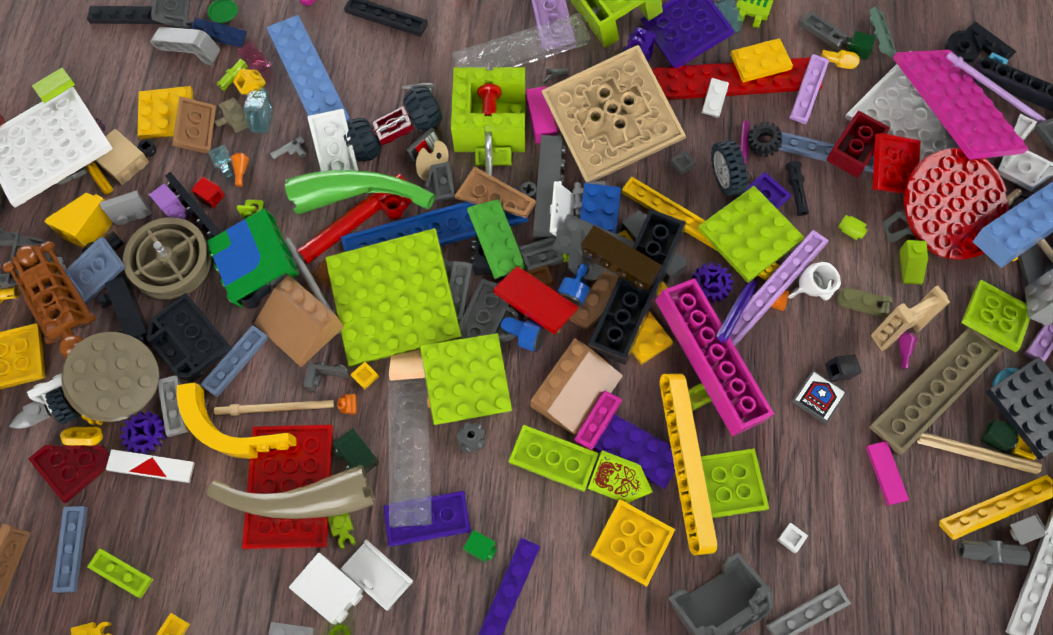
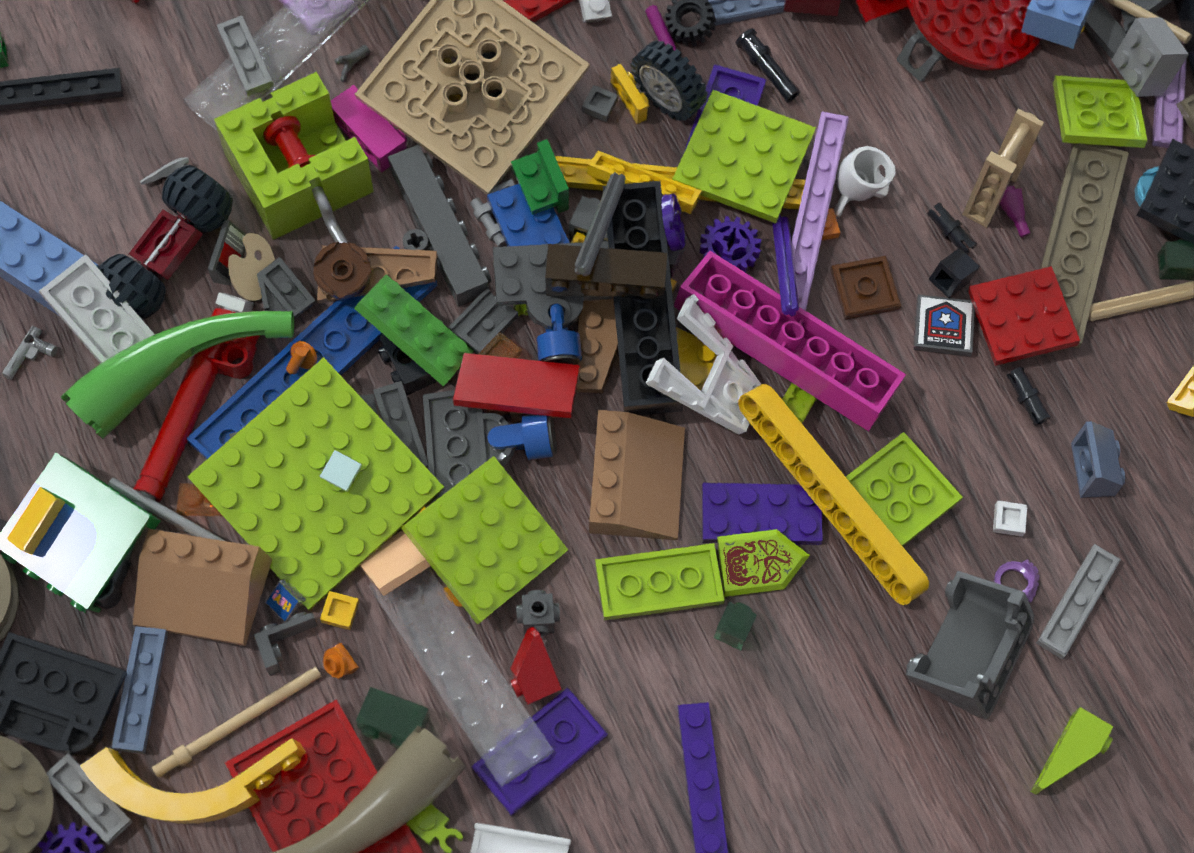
camera: 35 degrees left, 0 degrees up
(232, 240) = (35, 521): none -> yellow slope
(248, 210) = (26, 472): lime bracket -> none
(339, 353) = (284, 600): none -> tile
(407, 297) = (340, 471): none -> light aqua tile
(410, 175) = (234, 303): none -> white plate
(427, 222) = (302, 356): none -> orange plate
(448, 470) = (533, 669): none -> red slope
(473, 177) = (340, 256): none -> reddish brown plate
(480, 547) = (634, 746): green brick -> none
(495, 43) = (245, 55): none -> light grey plate
(501, 156) = (347, 214): lime plate -> none
(561, 206) = (475, 245): white door -> none
(582, 509) = (735, 625): none -> clear green brick
(598, 420) = (688, 501): dark pink tile -> none
(618, 189) = (542, 180): none -> green bracket
(630, 229) = (599, 224): none -> dark grey axle
(633, 542) = (821, 632): yellow plate -> none
(659, 361) = (726, 379): none -> white wing
(670, 207) = (604, 165): none -> yellow plate
(679, 251) = (672, 222): none -> dark purple tile
(704, 171) = (626, 89): none -> yellow plate
(782, 349) = (865, 287): none -> reddish brown tile
(786, 579) = (1028, 571): none -> medium lavender piece
(848, 468) = (1028, 396): none -> black pin
(853, 227) = (866, 84): lime brick -> none
(858, 340) = (951, 228): none -> black pin
(865, 302) = (932, 175): olive plate -> none
(870, 533) = (1097, 461): none -> sand blue slope
(873, 417) = (1023, 316): none -> red plate
(887, 473) = (1078, 380): dark pink tile -> none
(913, 261) = (964, 92): lime slope -> none

